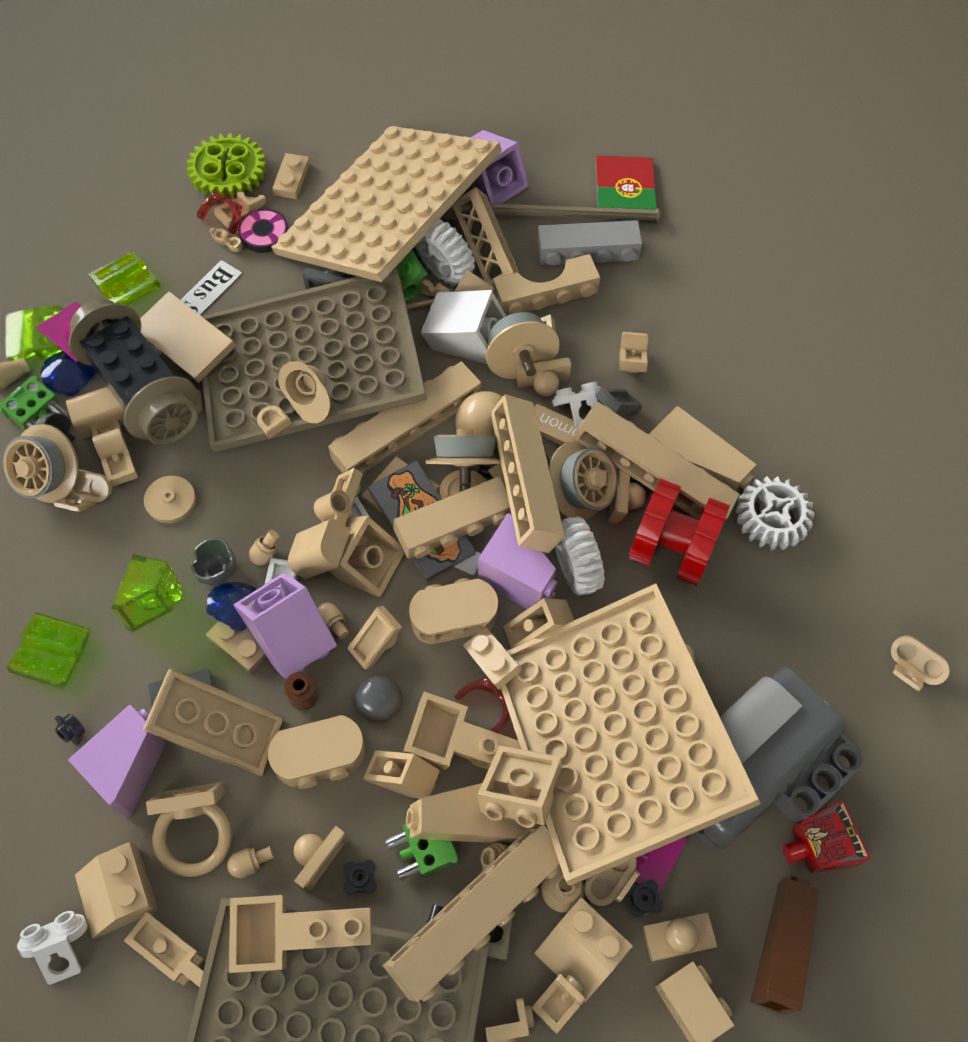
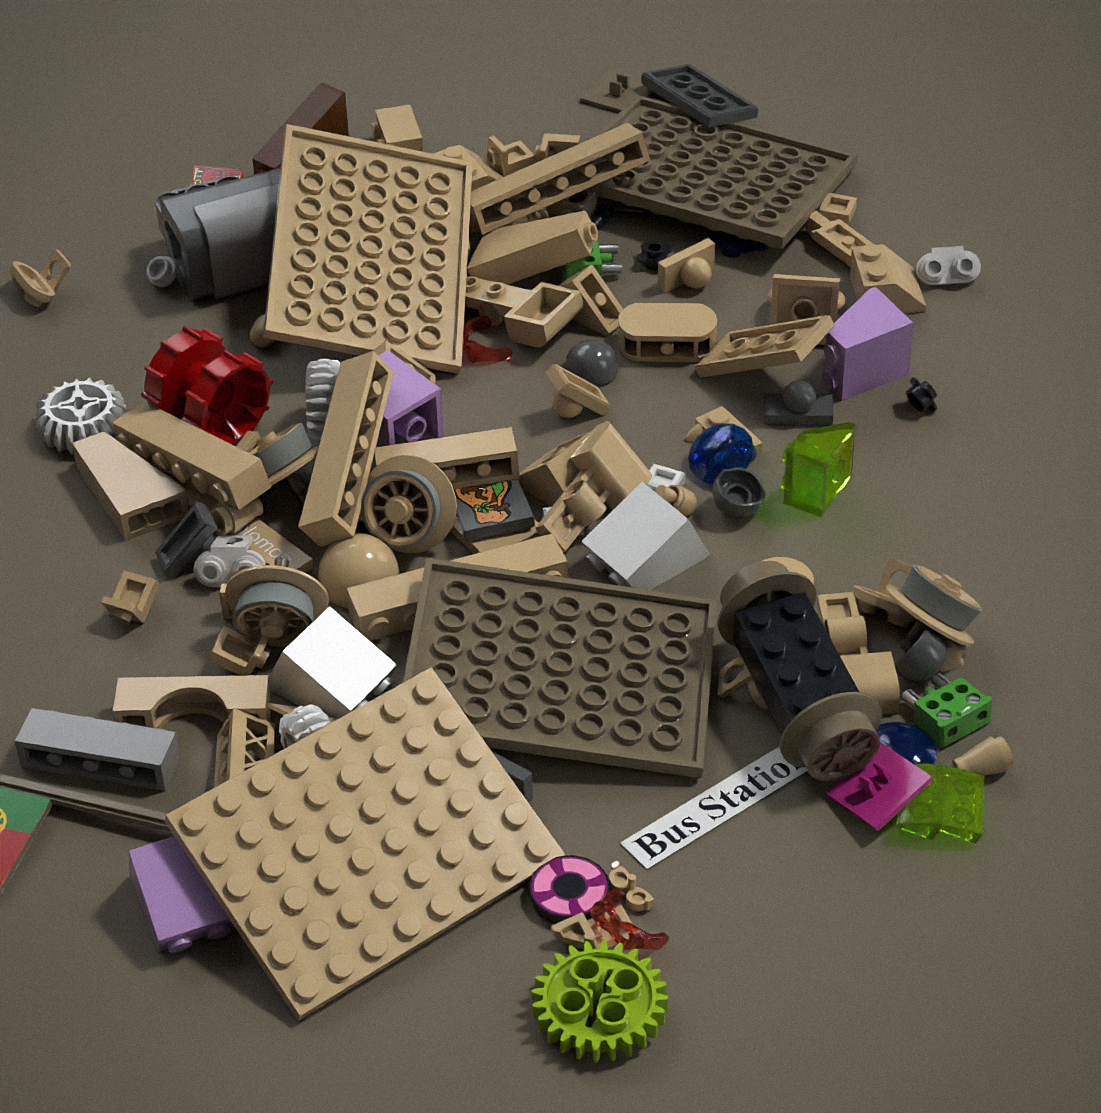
camera: 160 degrees left, 20 degrees down
(49, 650) = (942, 466): clear neon green slope -> none
(124, 279) = (800, 859): clear neon green slope -> none
(177, 1012) = (838, 207): none -> tan plate
(185, 337) = (725, 740): tan tile -> none
(248, 861) = (755, 281): tan cylinder -> none
(265, 931) = (747, 198): tan plate -> none
(272, 420) = (627, 590): tan tile -> none
(274, 490) = (644, 541): none -> white slope
(286, 624) = (672, 409): lavender slope -> none
(291, 176) = (497, 974): tan plate -> none
(301, 690) = (669, 370): reddish brown brick -> none
(305, 390) = (571, 593): tan piece -> none
(333, 619) = (622, 425): tan cylinder -> none
(453, 610) = (485, 403): tan brick -> none
(492, 658) = (460, 358): tan plate -> none
(519, 786) = (481, 226): tan plate -> none

